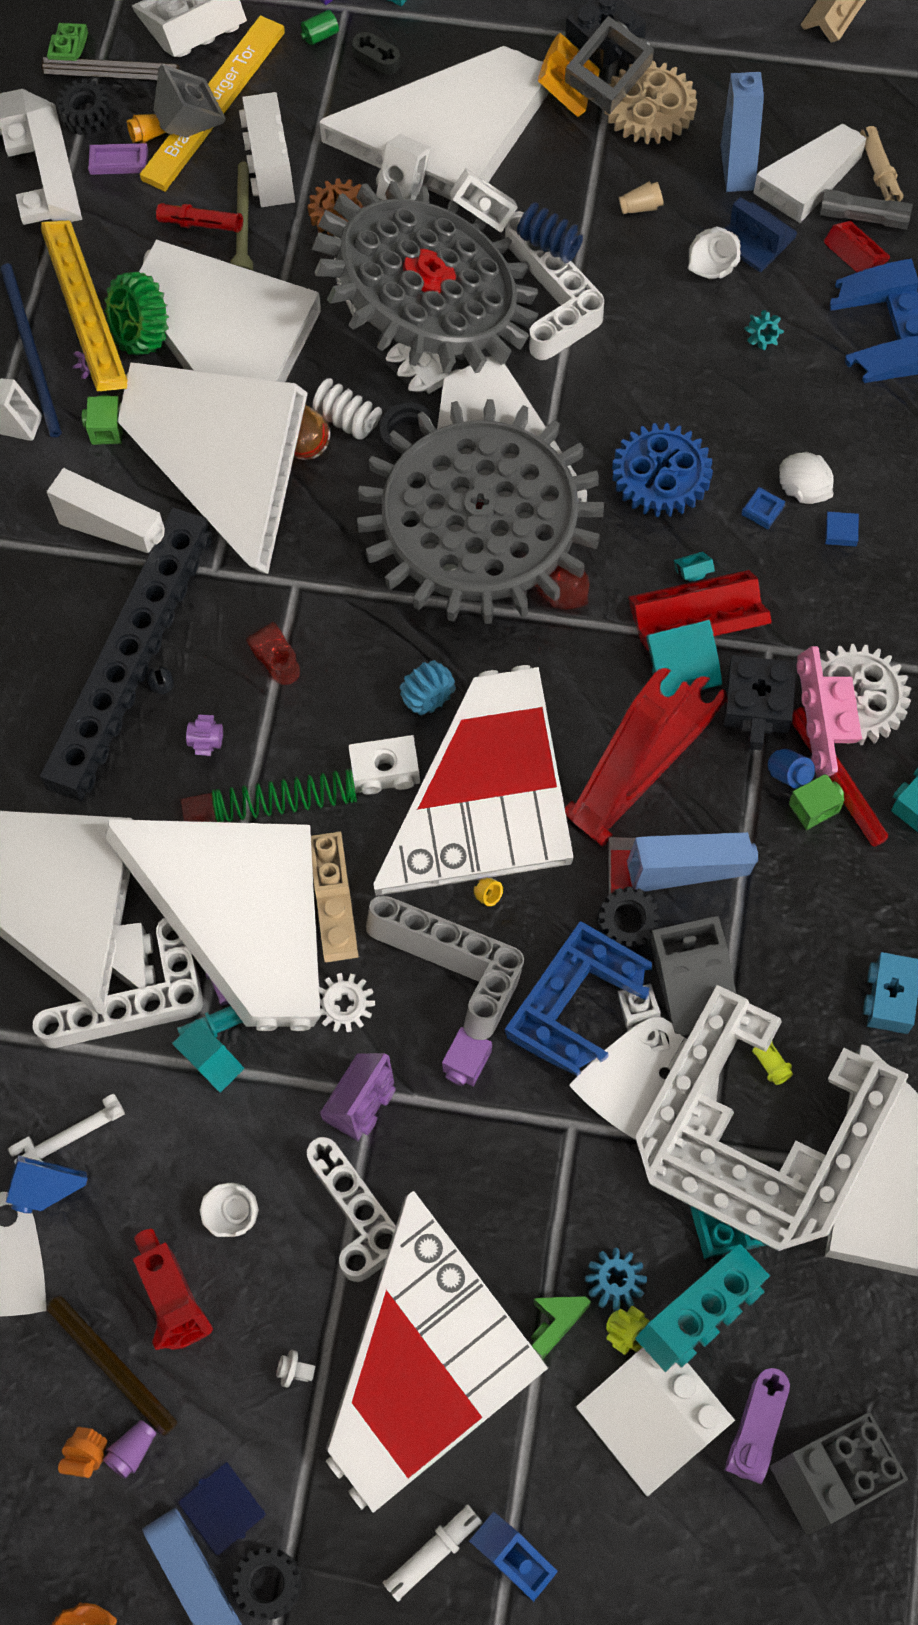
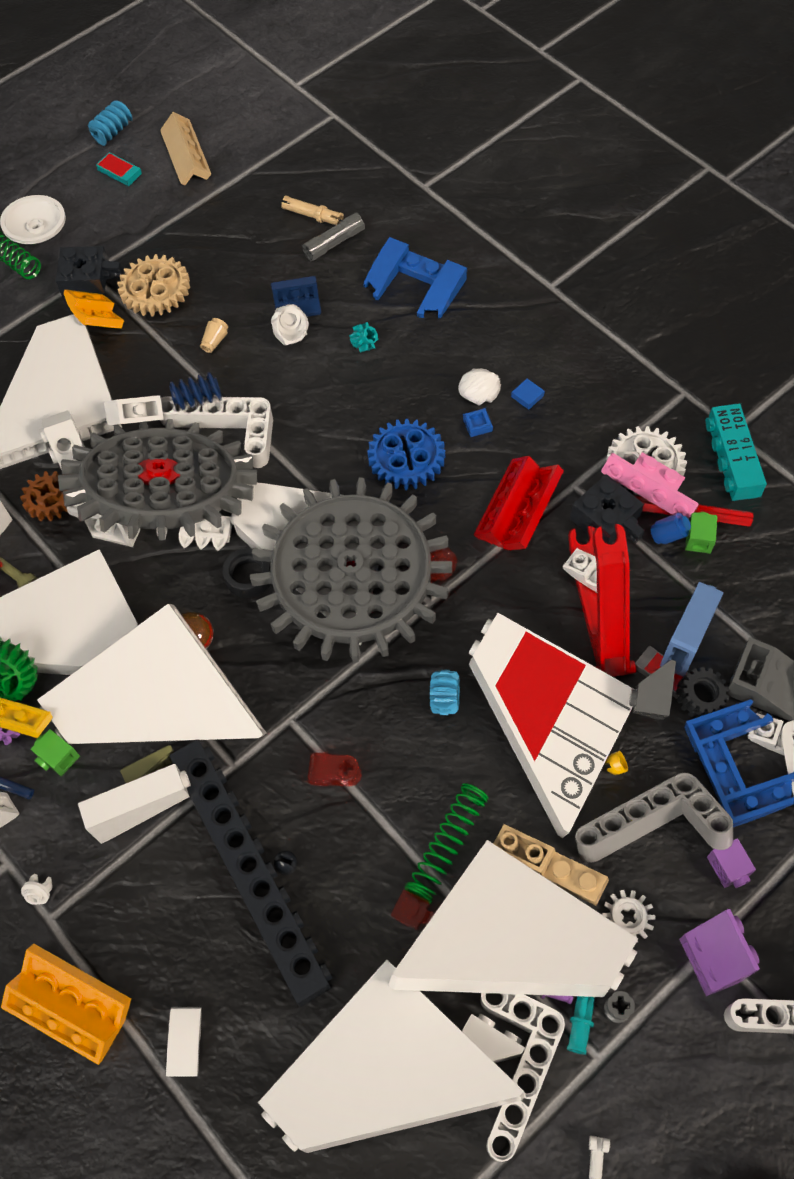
camera: 50 degrees left, 5 degrees down
(152, 499) = (148, 764): none -> olive slope
(204, 735) = (357, 862): medium lavender gear -> none
(208, 1055) = (606, 1041): teal slope -> none
(229, 1210) = (740, 1114): white hair -> none
(242, 1054) = (625, 1000): none -> dark grey bush
(344, 411) = (197, 596): white piece -> none
(398, 752) = (479, 745): white brick -> none
(581, 868) = (654, 693): none -> dark grey slope
(594, 87) = (115, 300): dark grey window -> none
(676, 739) = (583, 568): none -> white slope
(687, 653) = (548, 533): teal slope -> none
(694, 566) = (487, 483): teal plate -> none
(742, 131) = (230, 250): medium blue slope -> none
(800, 179) = (283, 248): white slope -> none
(855, 247) = (351, 260): red slope -> none

